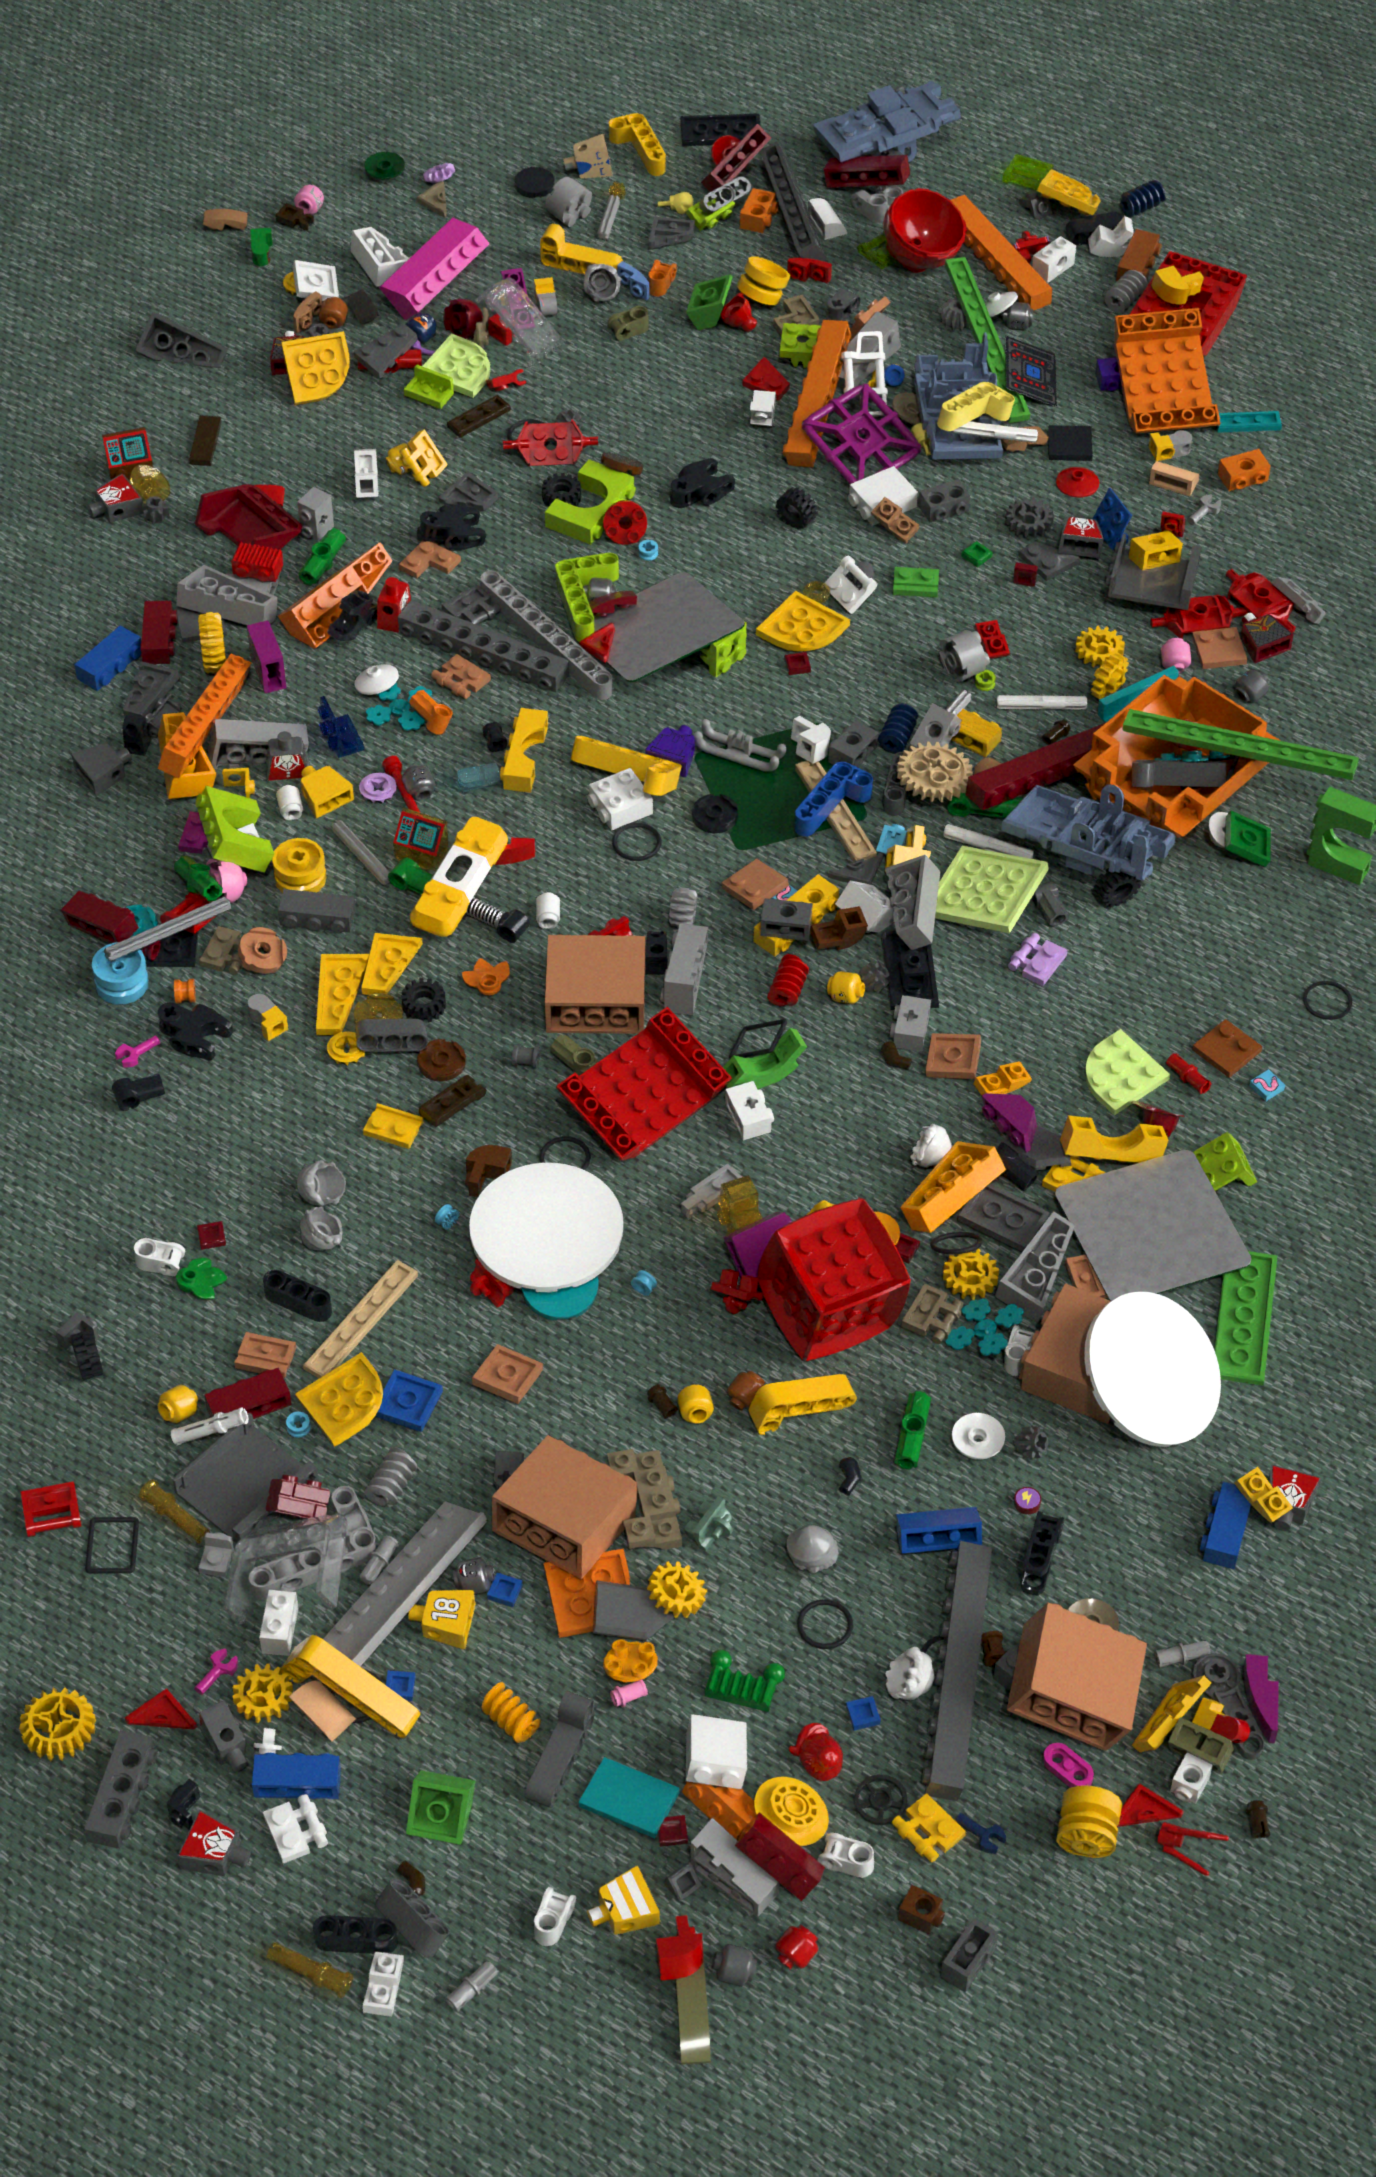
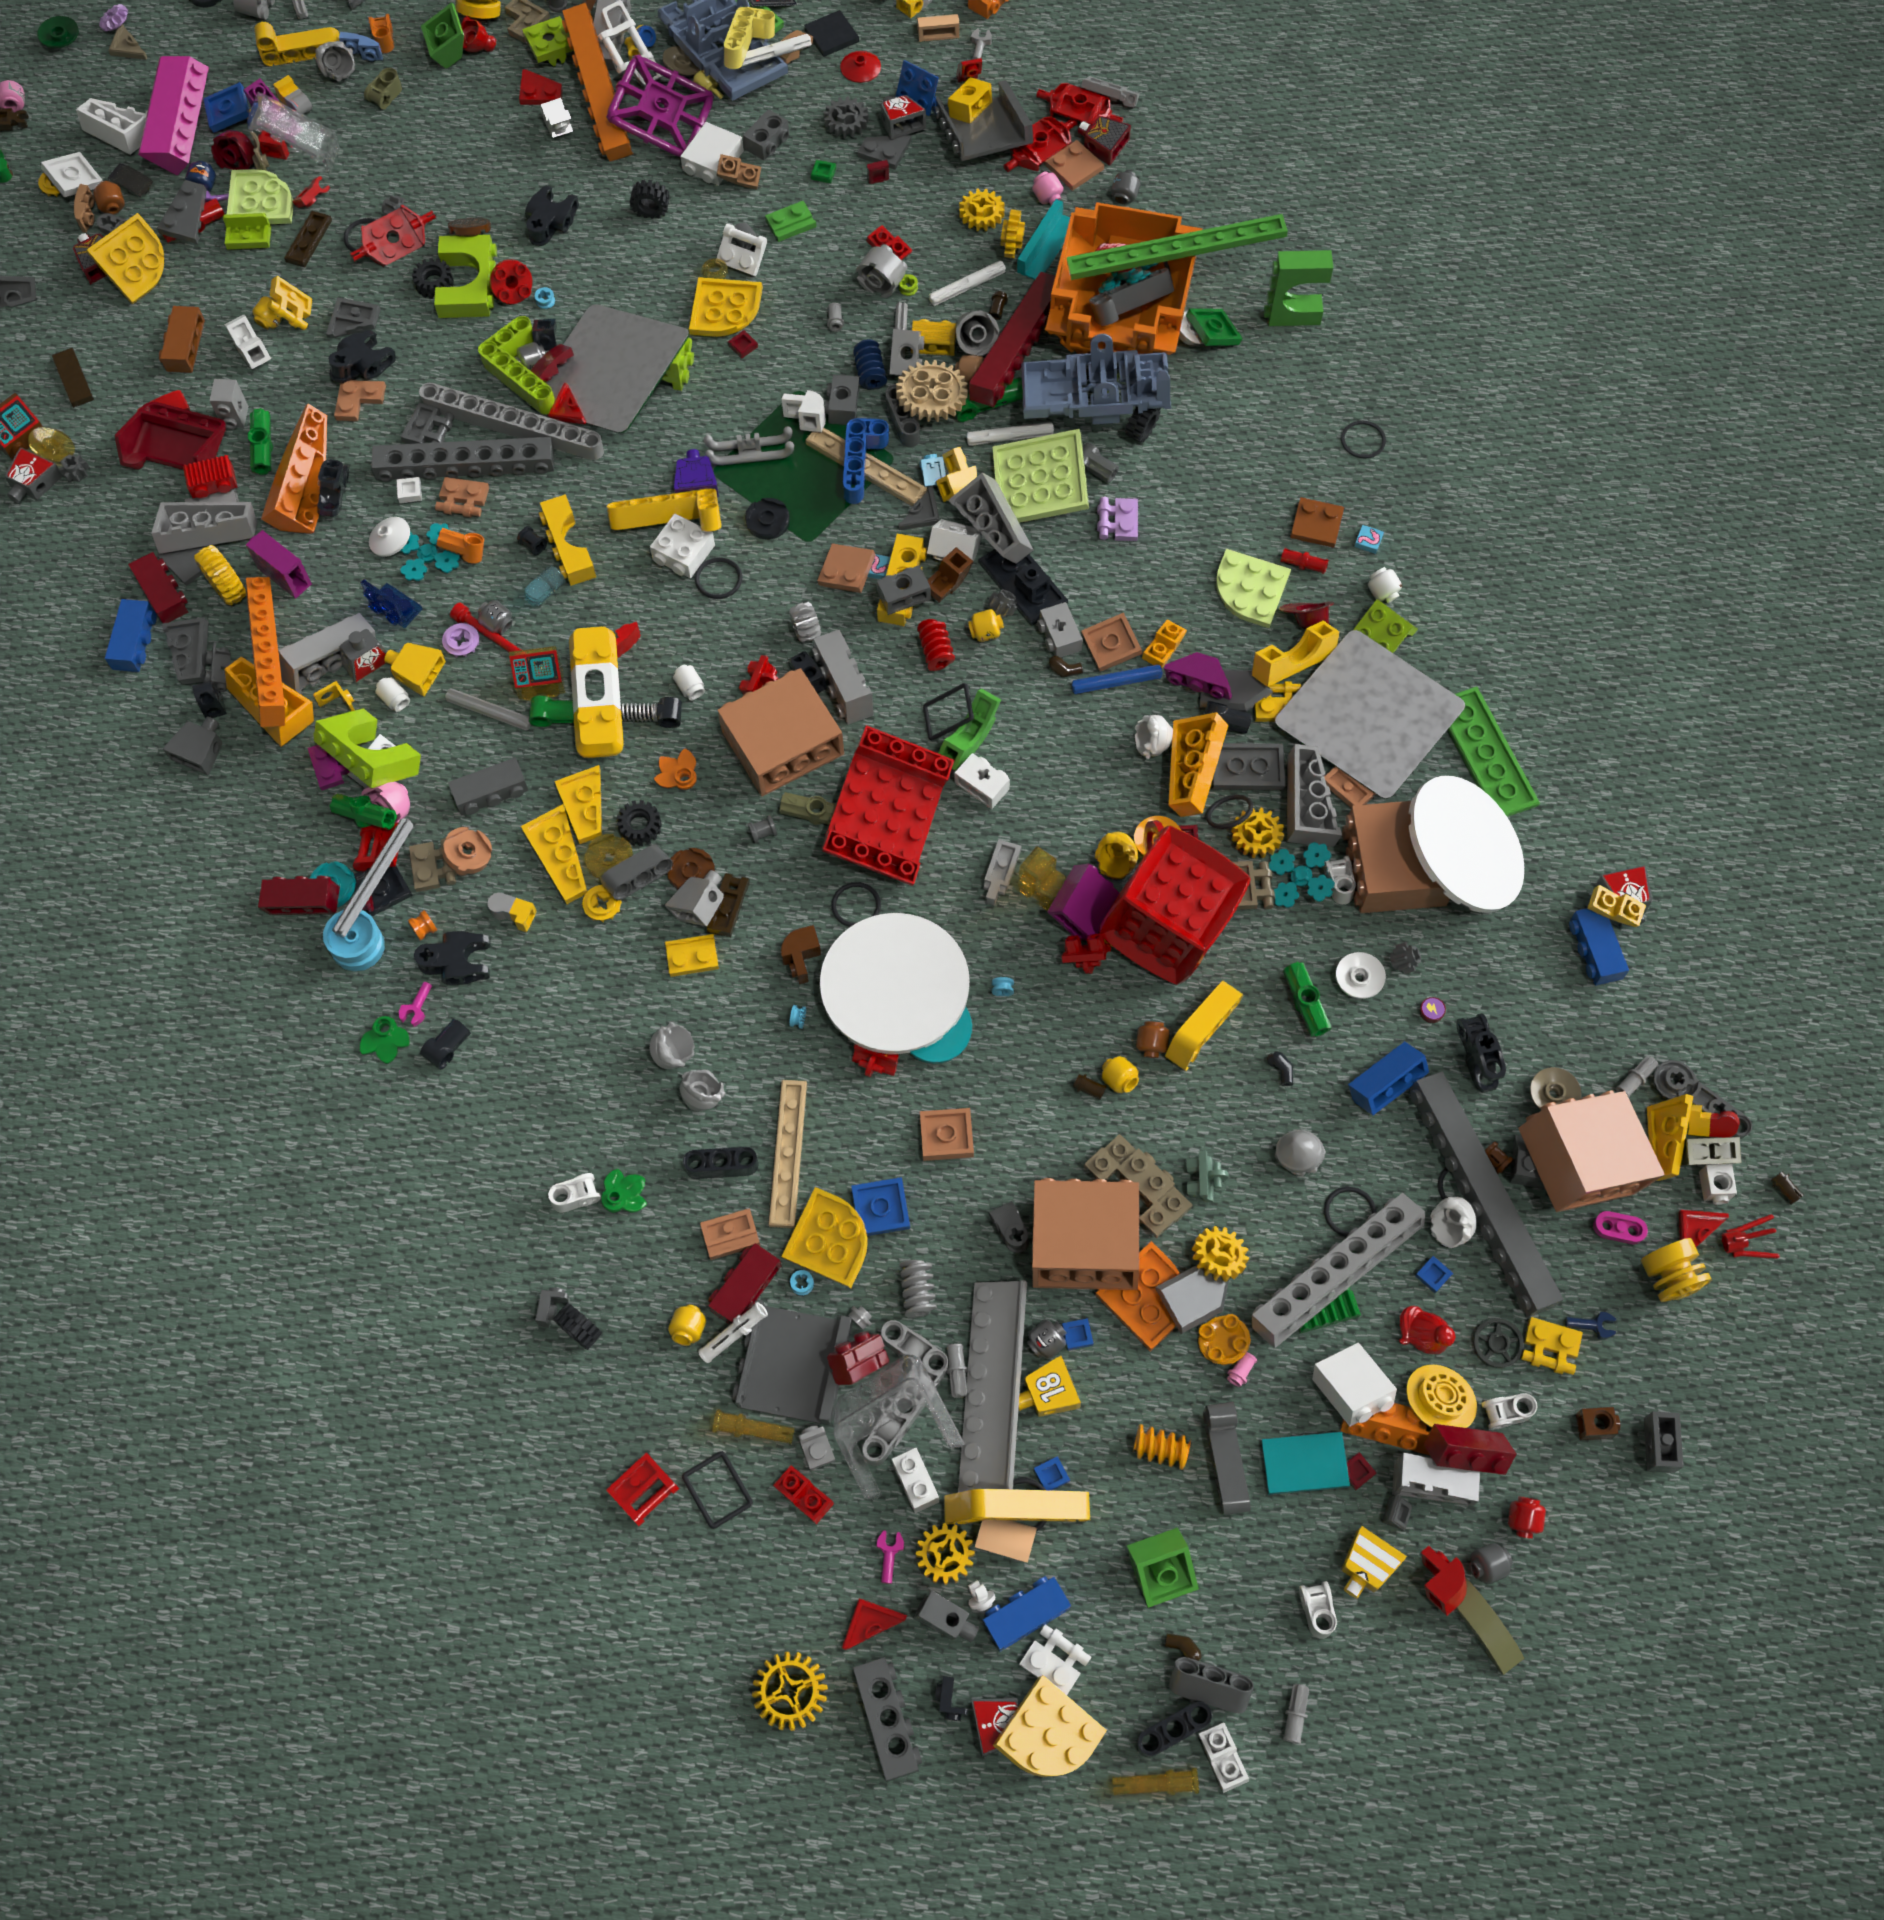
camera: 30 degrees left, 15 degrees up
(91, 1065) = (384, 1043): none -> green plate
(179, 1586) = (803, 1494): none -> red slope
(211, 1235) = (604, 1145): dark red tile -> none
(246, 1872) = (1049, 1732): none -> yellow plate
(299, 865) = (445, 753): yellow wheel -> none
(315, 449) = (182, 339): none -> dark orange brick
(327, 1475) = (860, 1317): none -> light grey plate
(393, 596) = (357, 450): red torso -> none
(419, 650) = (409, 490): none -> white plate
(426, 1080) = (697, 899): none -> light grey torso
(478, 280) = (226, 107): none -> blue plate
(626, 576) = (545, 333): none -> black bracket
(772, 1654) = (1335, 1281): none -> light grey brick
(895, 680) = (835, 319): none -> light grey pin
(936, 1088) = (1116, 679): none -> blue axle
(1001, 742) = (976, 332): none -> light grey cone
(1250, 1128) = (1385, 585): none -> white head
(1261, 1695) = (1721, 1079): magenta slope -> none

